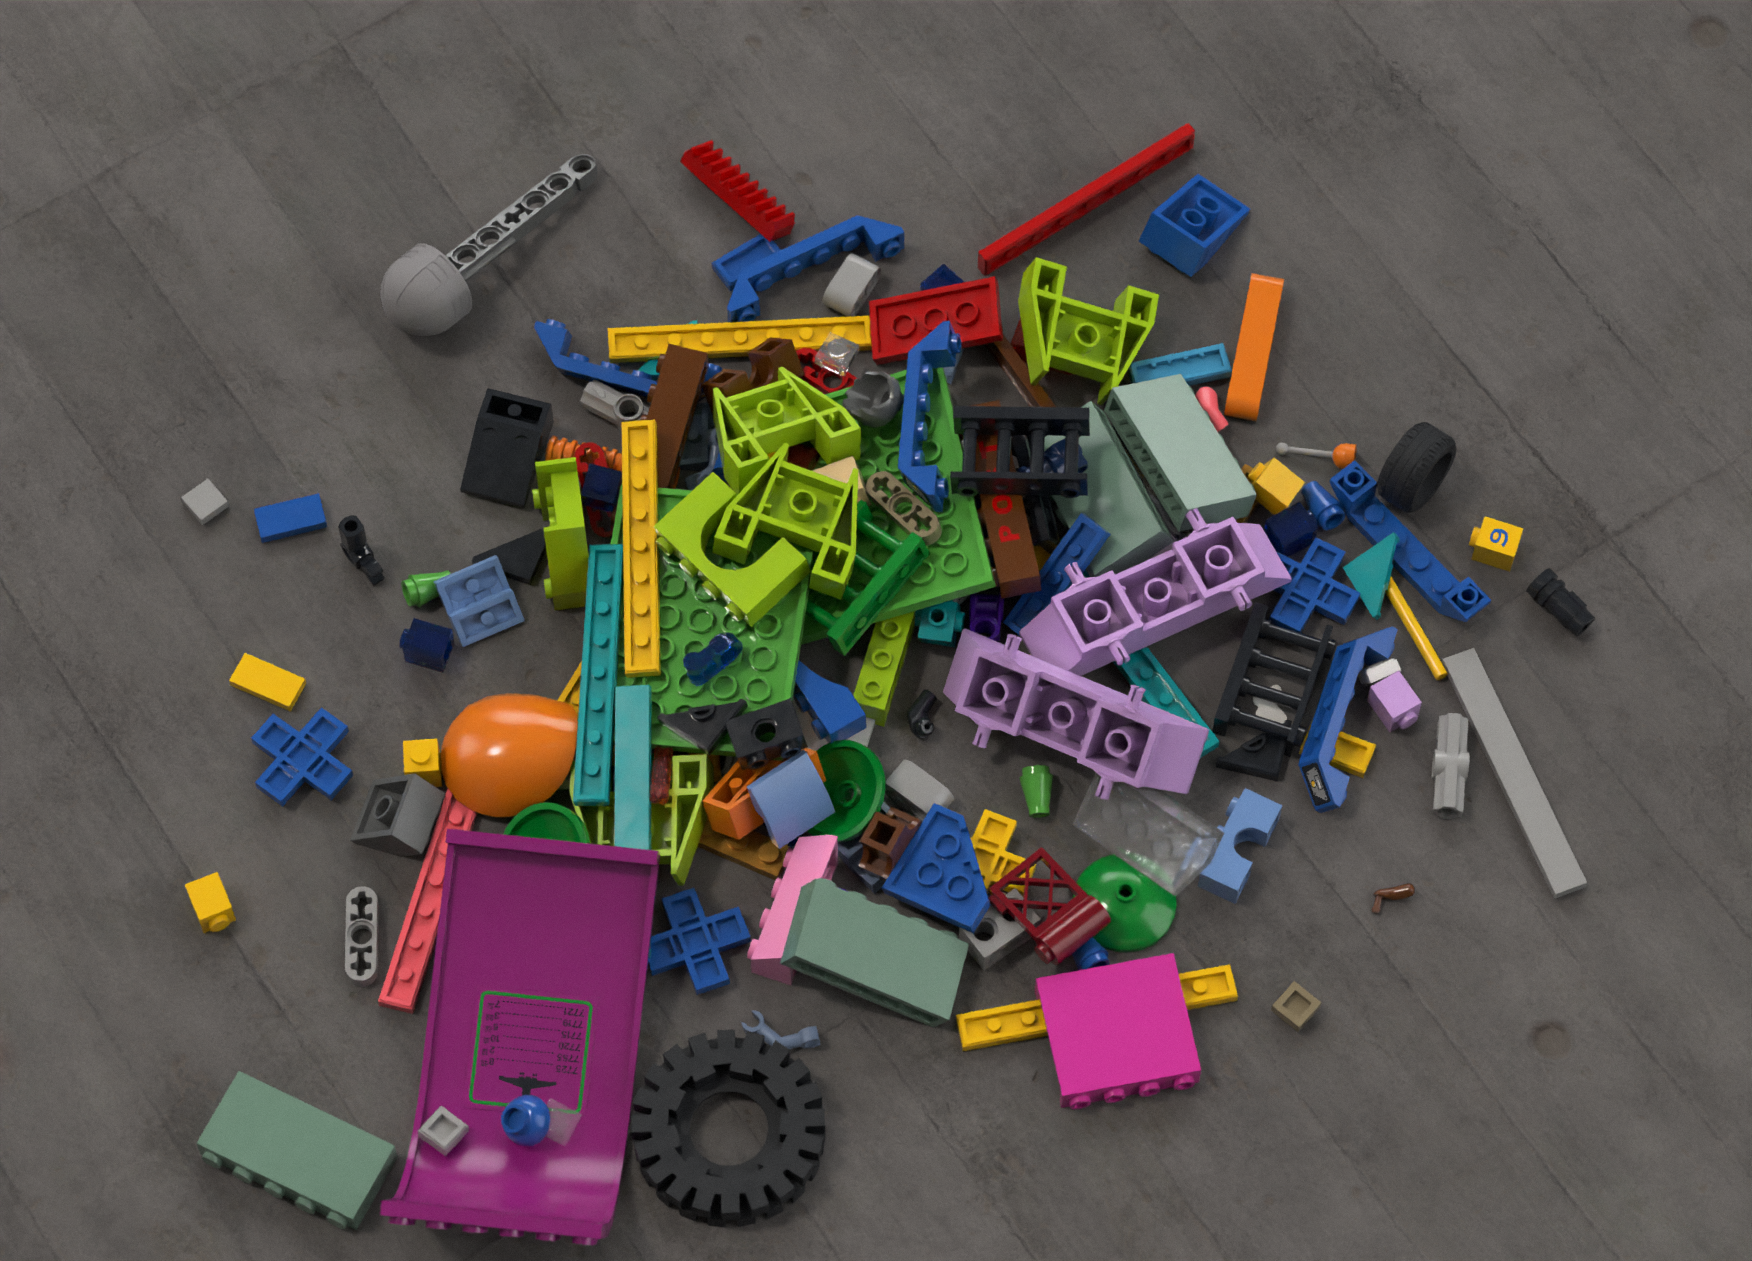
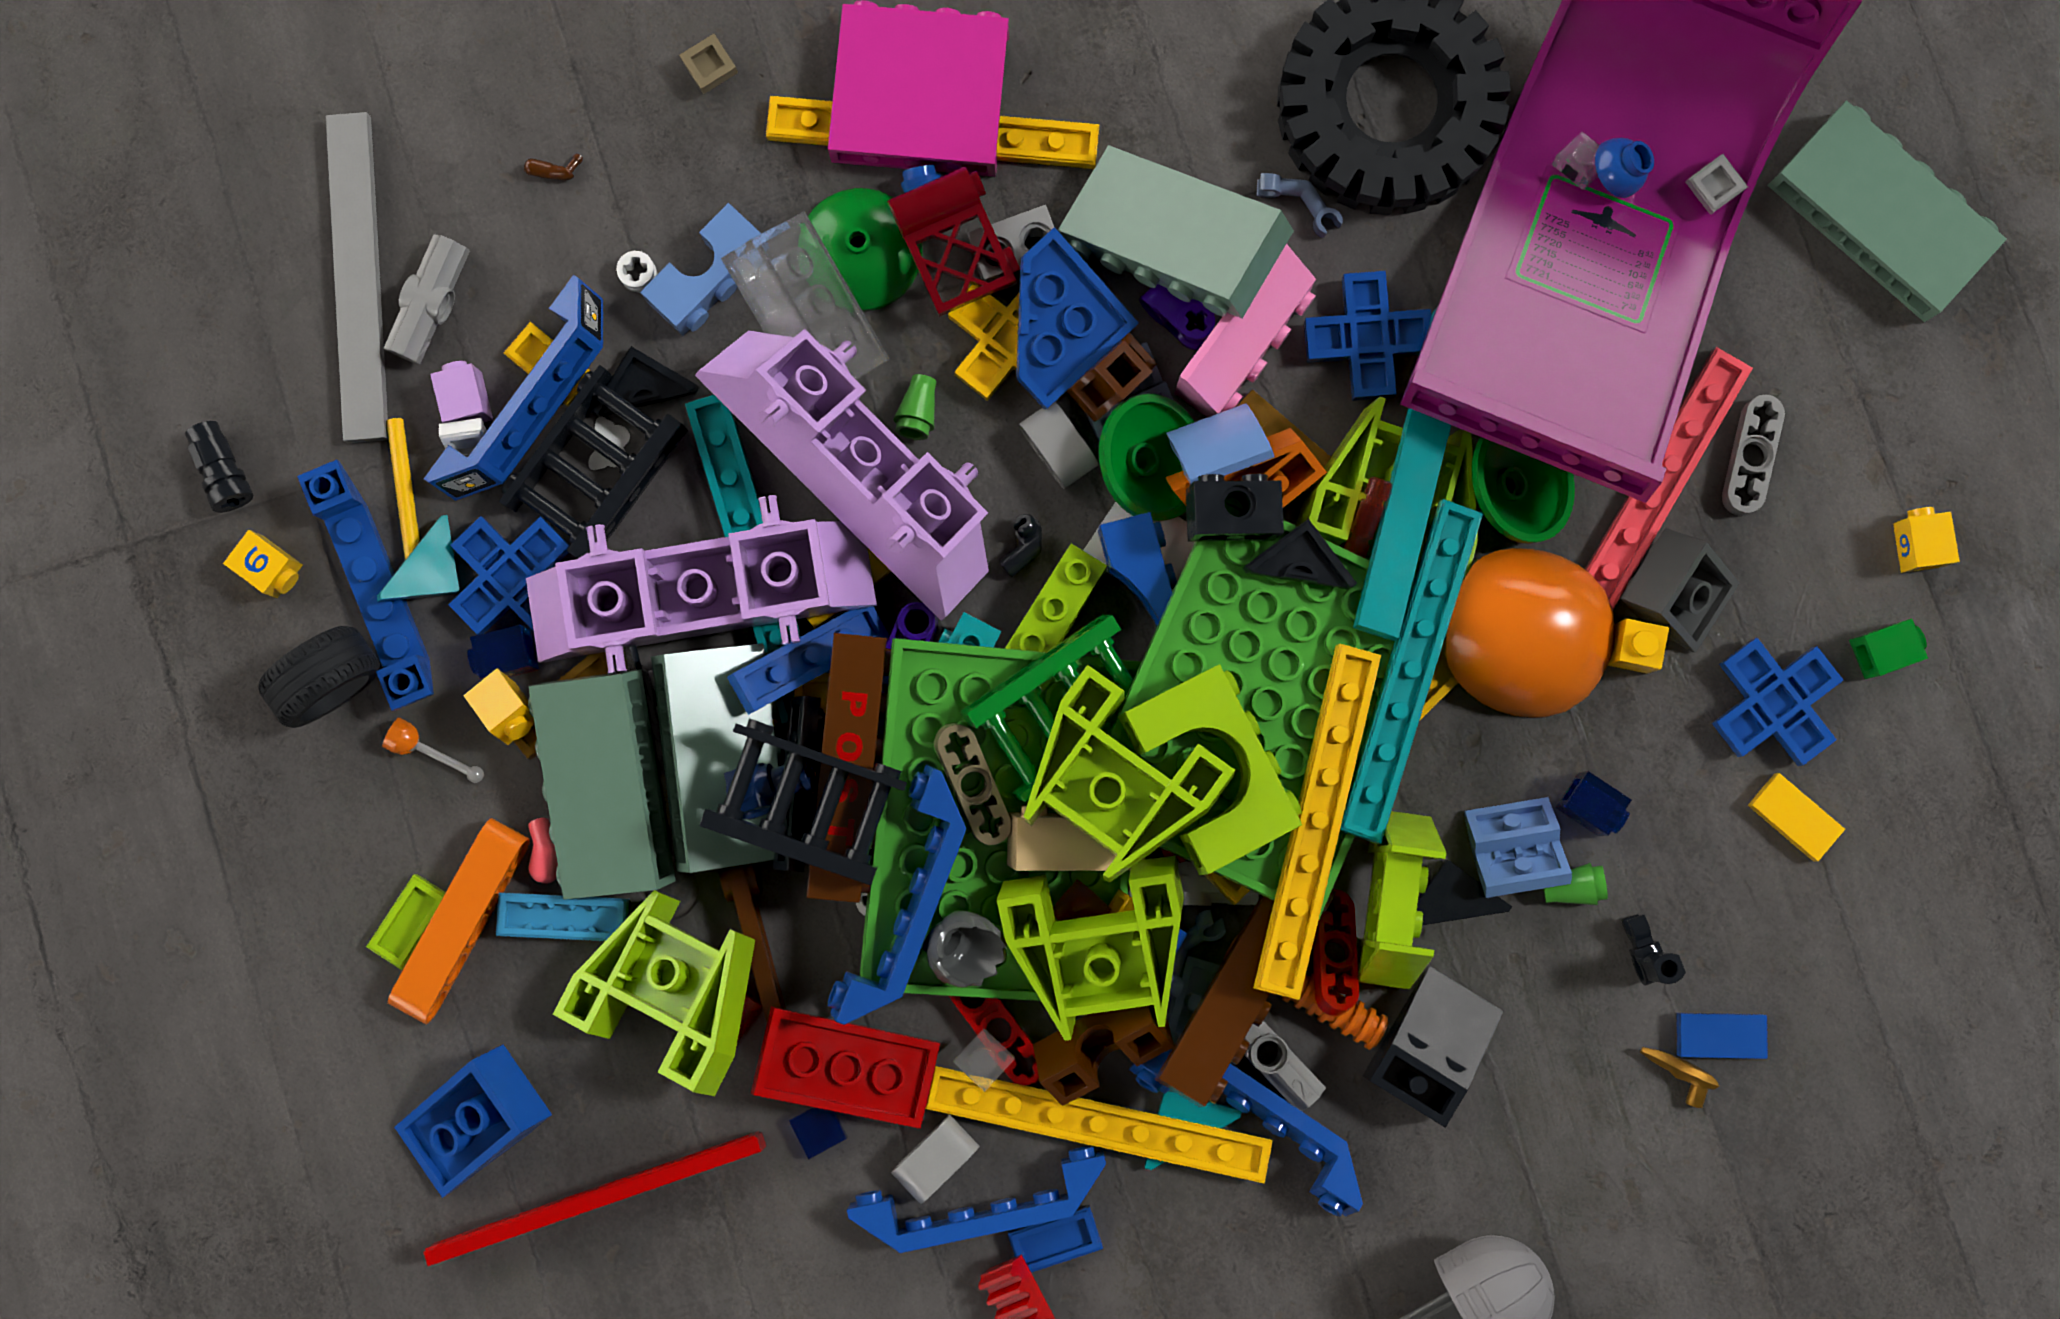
camera: 160 degrees left, 20 degrees up
(205, 501) = (1823, 1090): light grey tile -> none
(222, 816) = (1889, 648): none -> green brick
(310, 486) = (1685, 1071): none -> pearl gold bar
(601, 488) = (1339, 935): clear blue brick -> none
(711, 660) = (1257, 640): clear blue plate -> none
(1291, 340) = (406, 921): none -> lime tile
(1300, 826) = (626, 263): none -> white bush
(1323, 505) = (452, 677): blue cone -> none

